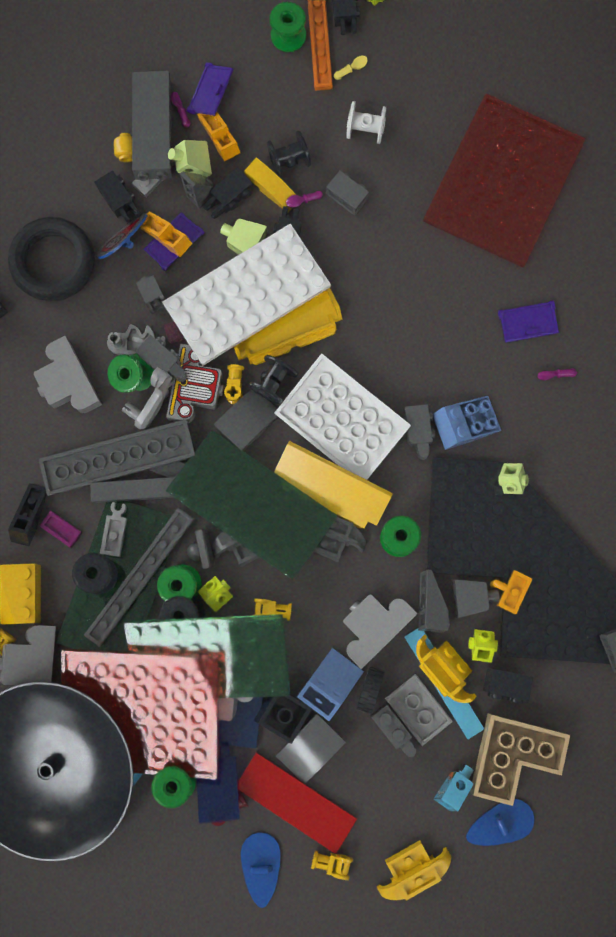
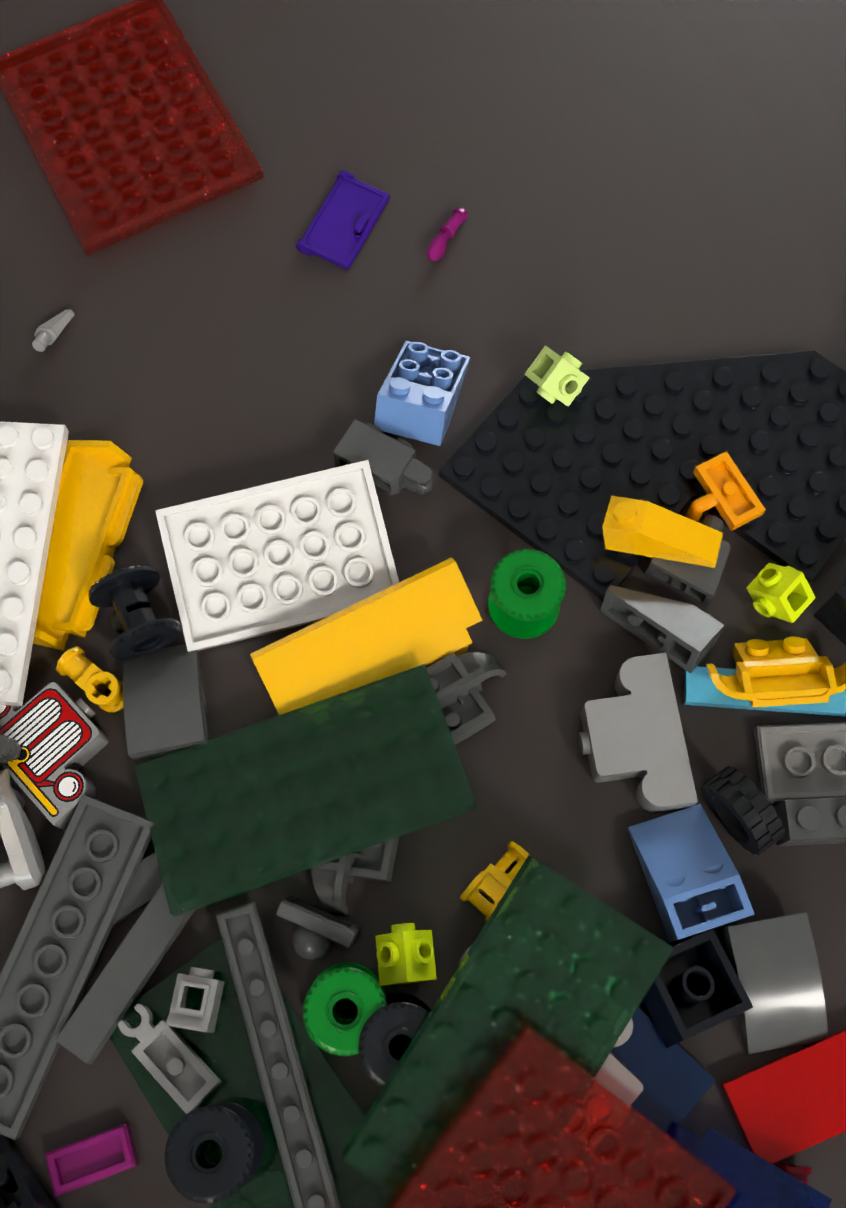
camera: 55 degrees left, 10 degrees down
(133, 529) = (191, 1019): none -> light grey window
(373, 236) = (51, 329): none -> light grey bar
(468, 575) = (659, 533): none -> yellow slope

